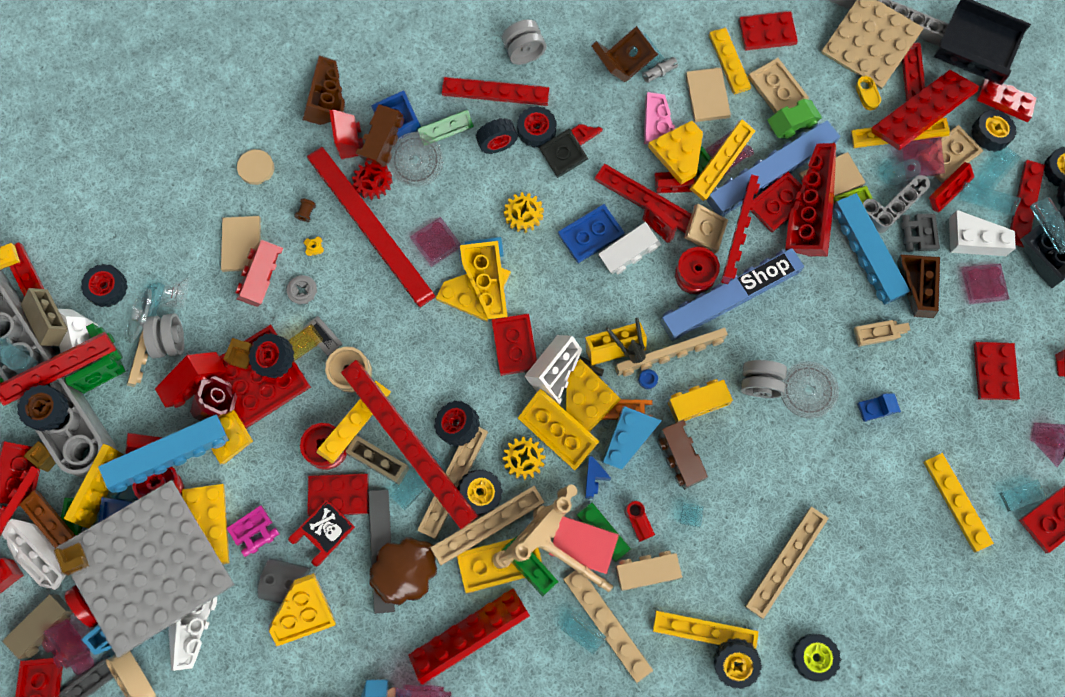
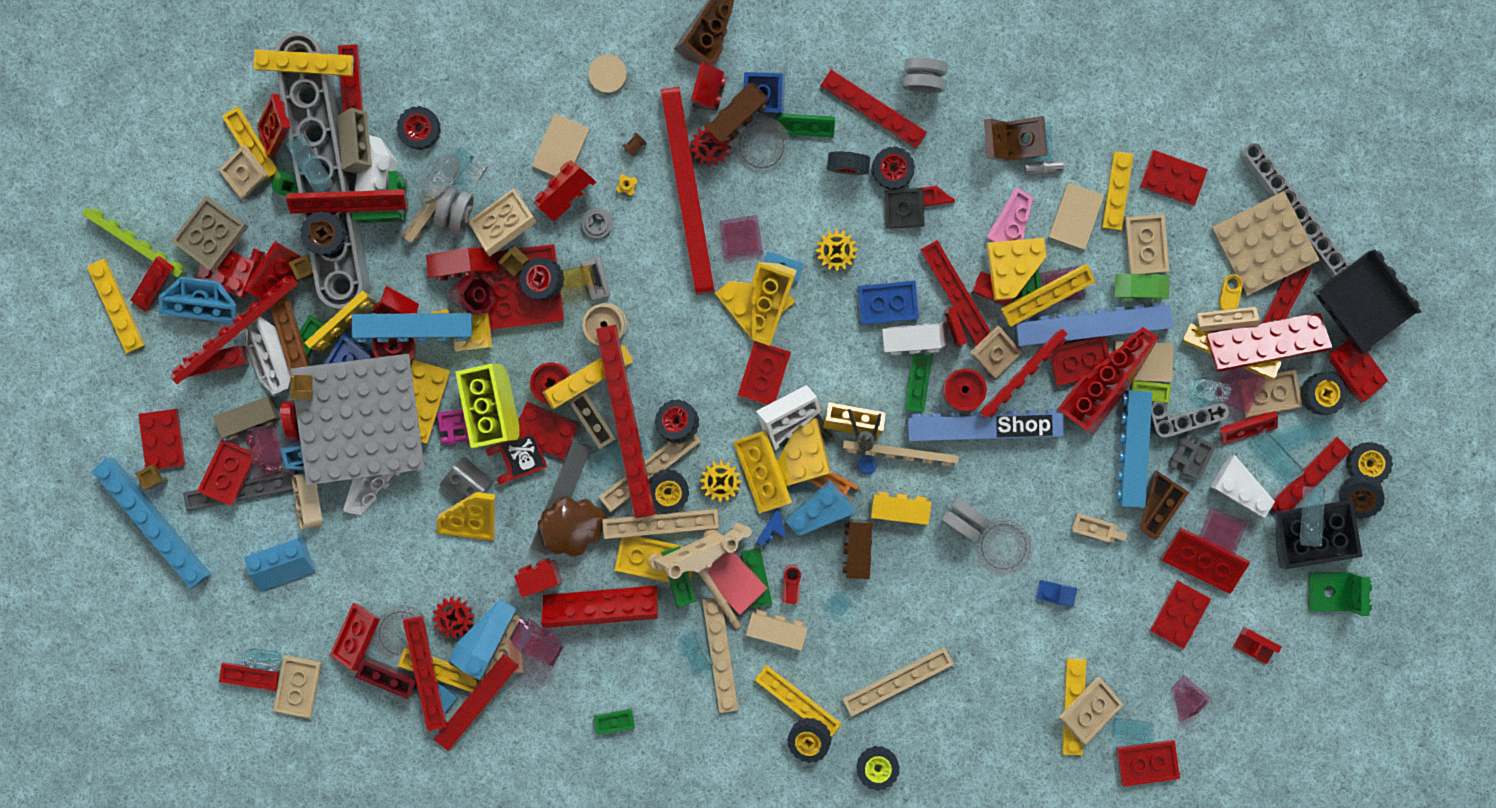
camera: 30 degrees right, 15 degrees up
(213, 324) = (502, 221): none -> tan plate
(269, 492) = (488, 405): none -> neon yellow brick
(394, 637) = (537, 578): none -> red brick
(653, 286) = (918, 382): none -> green plate
(880, 110) = (1228, 319): none -> tan plate
(976, 496) = (1091, 711): none -> tan tile
(988, 311) = (1205, 560): none -> red plate

